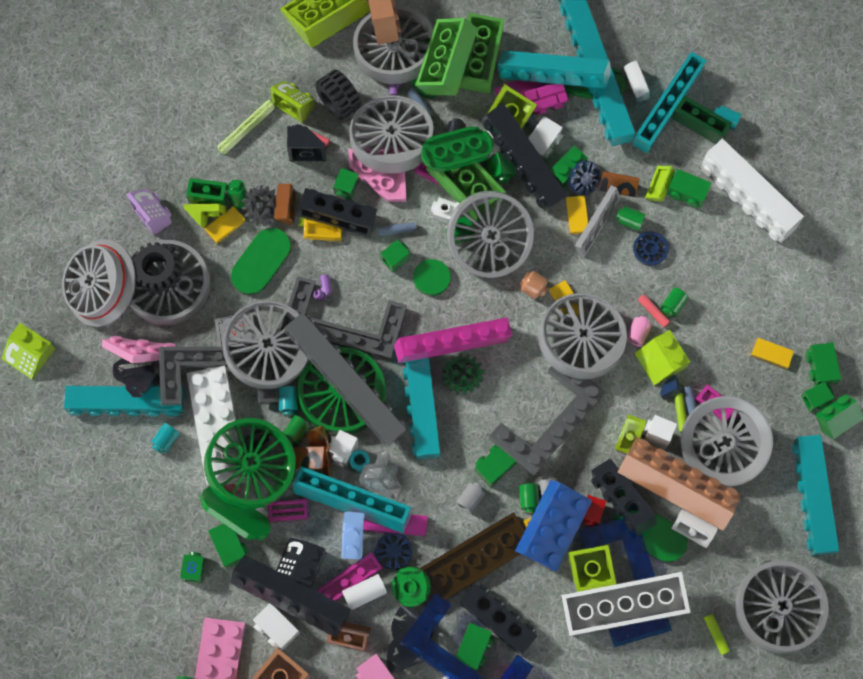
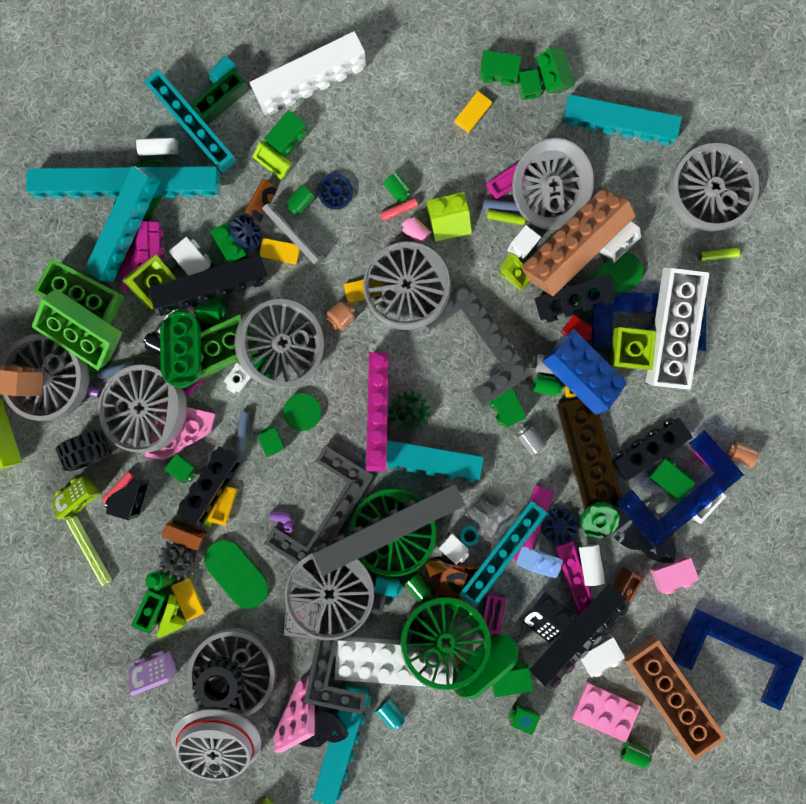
camera: 70 degrees left, 15 degrees up
(670, 388) = (479, 219): dark blue tile -> none

